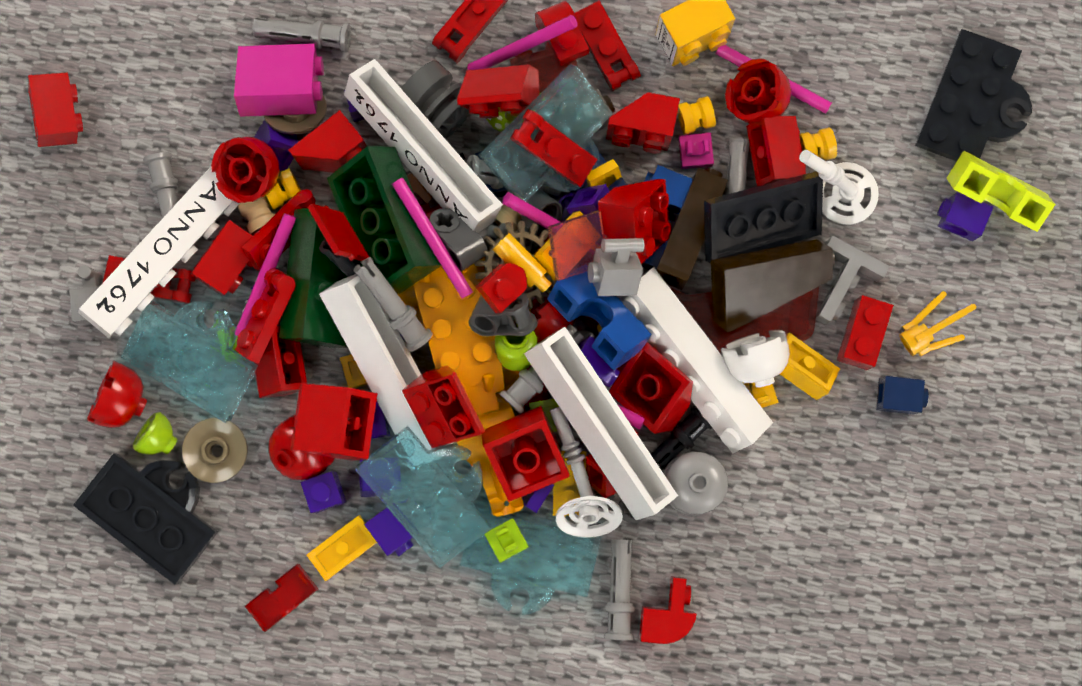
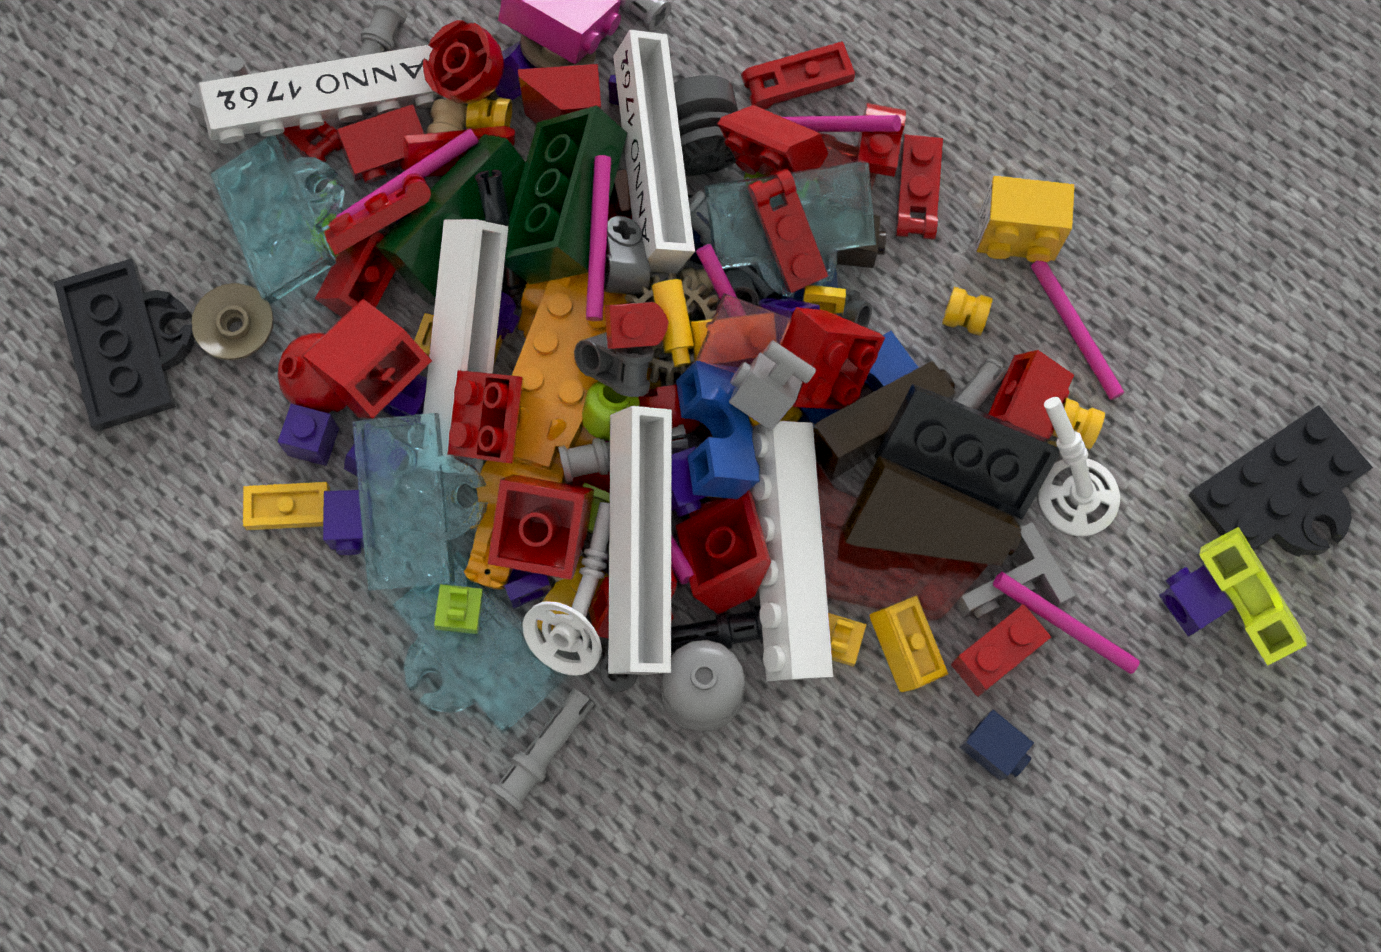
camera: 30 degrees right, 10 degrees down
(118, 398) = (175, 206): red cylinder -> none
(155, 436) = (185, 270): lime brick -> none
(273, 606) = (174, 517): red piece -> none
(338, 232) = (506, 170): red piece -> none
(401, 315) = (511, 297): light grey pin -> none
(626, 165) = (857, 310): none -> dark grey plate
(645, 123) = (906, 279): red slope -> none
(669, 624) = (575, 822): red brick -> none
(696, 150) = (943, 347): dark pink tile -> none
(757, 357) = (861, 594): white cylinder -> none
(758, 91) = (1050, 324): red cylinder -> none
(894, 287) = (1066, 623): none -> dark pink bar
(918, 338) = (1057, 697): yellow plant -> none

